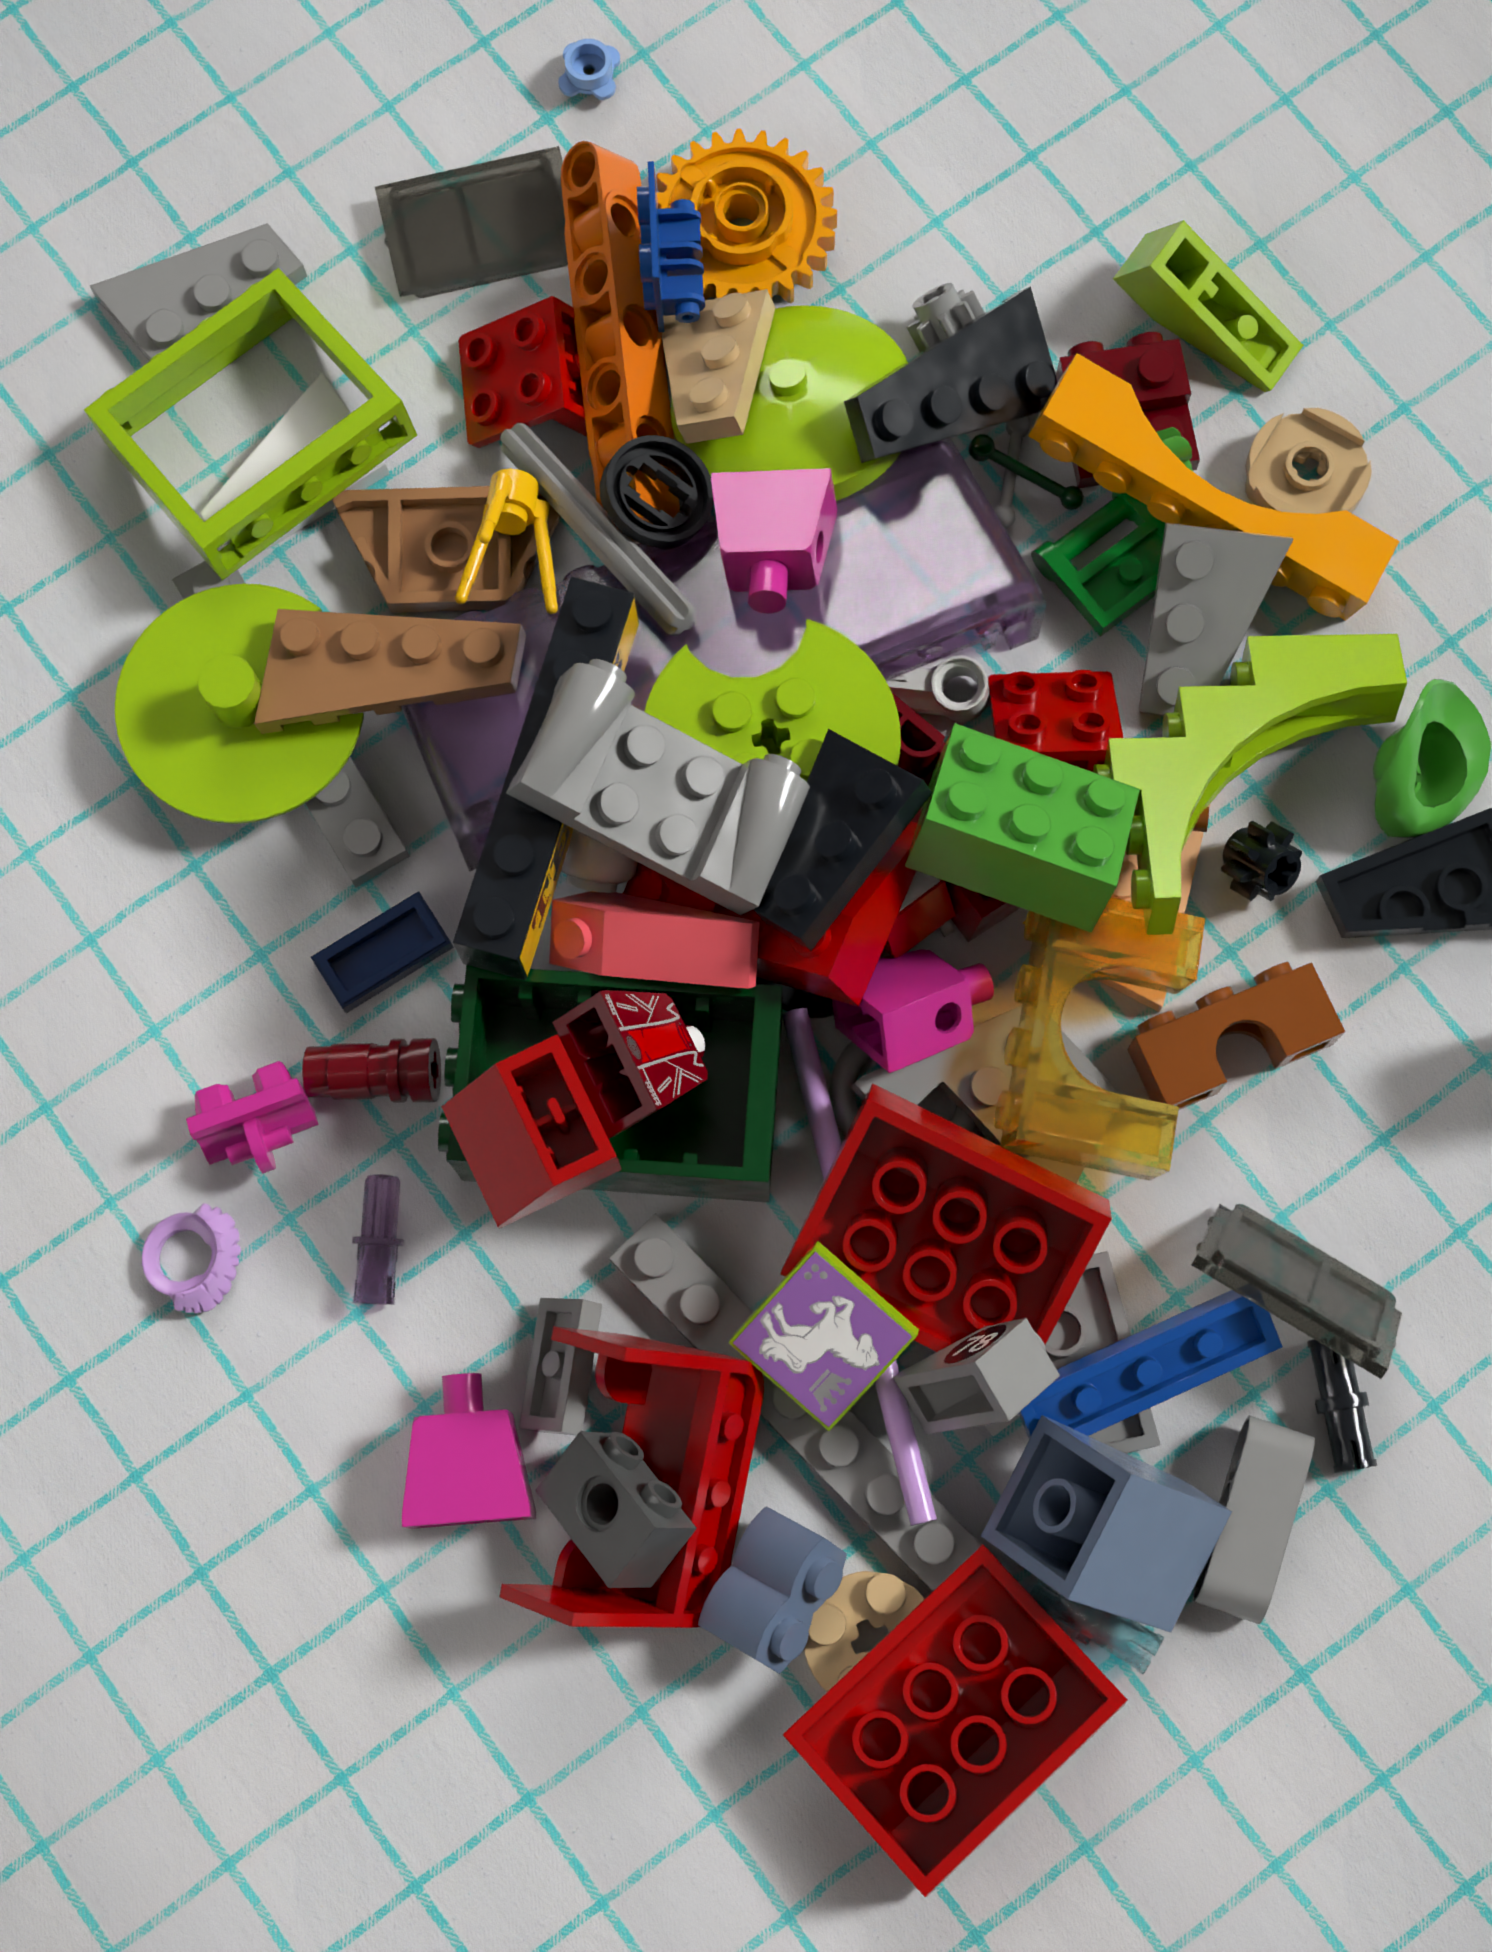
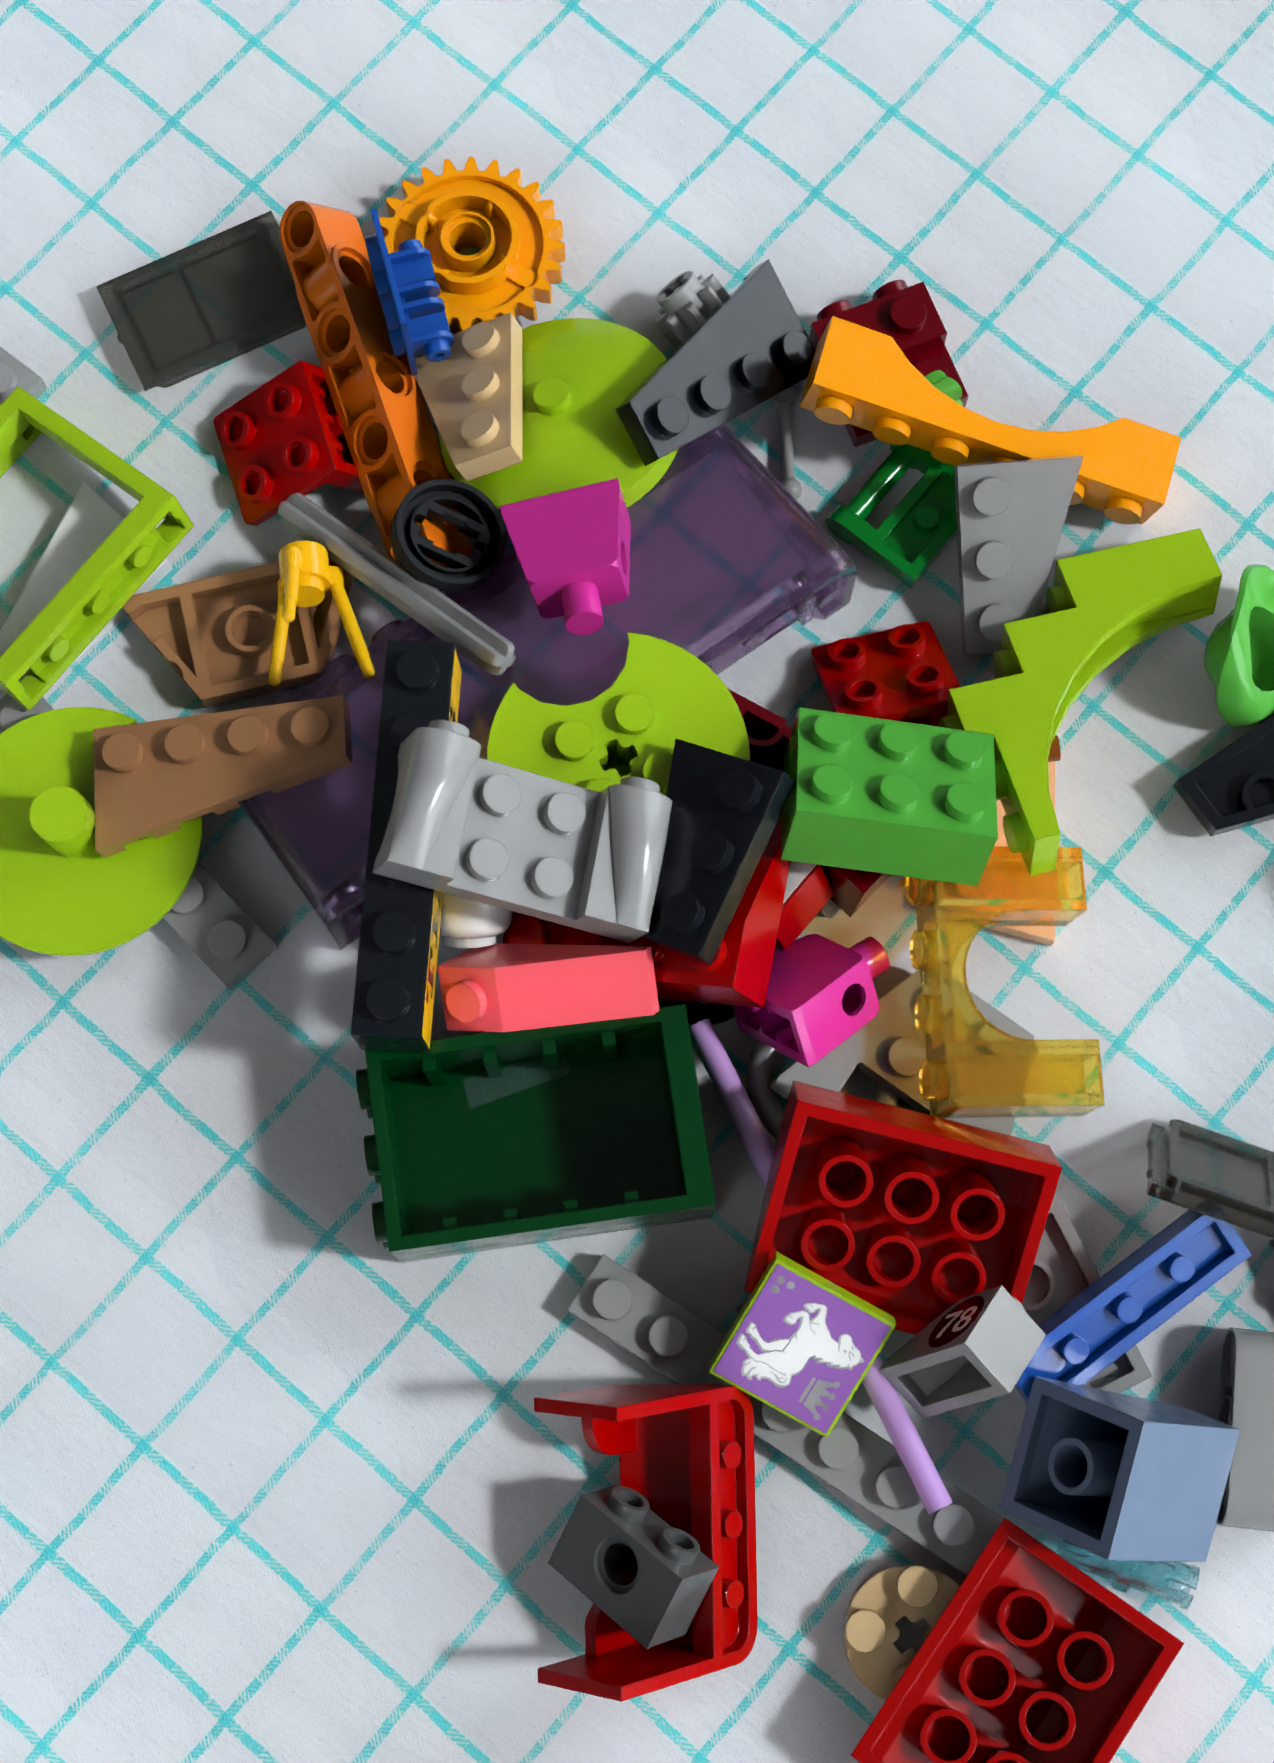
camera: 15 degrees left, 0 degrees up
(204, 1290) = (164, 1433): lavender piece -> none
(254, 1123) = (181, 1253): dark pink hips -> none
(374, 1070) = (290, 1172): dark red axle -> none
(378, 1241) = (332, 1344): clear purple axle -> none
(382, 952) = (271, 1050): dark blue tile -> none
(465, 1463) = (470, 1550): dark pink torso -> none
(530, 1132) = (469, 1208): red slope -> none
(559, 1372) = (542, 1442): light grey plate -> none
(589, 55) = (280, 115): light blue plate -> none
(631, 1054) = (555, 1109): dark red torso -> none
(773, 1589) = (806, 1609): sand blue brick -> none
(924, 688) = (752, 673): white piece -> none
(983, 448) = (756, 426): dark green hinge -> none
(1207, 304) = (941, 243): lime slope -> none
(1261, 861) = (1118, 777): black gear -> none
(1283, 1012) = (1175, 923): dark orange arch -> none
(1297, 437) = (1068, 350): tan plate -> none

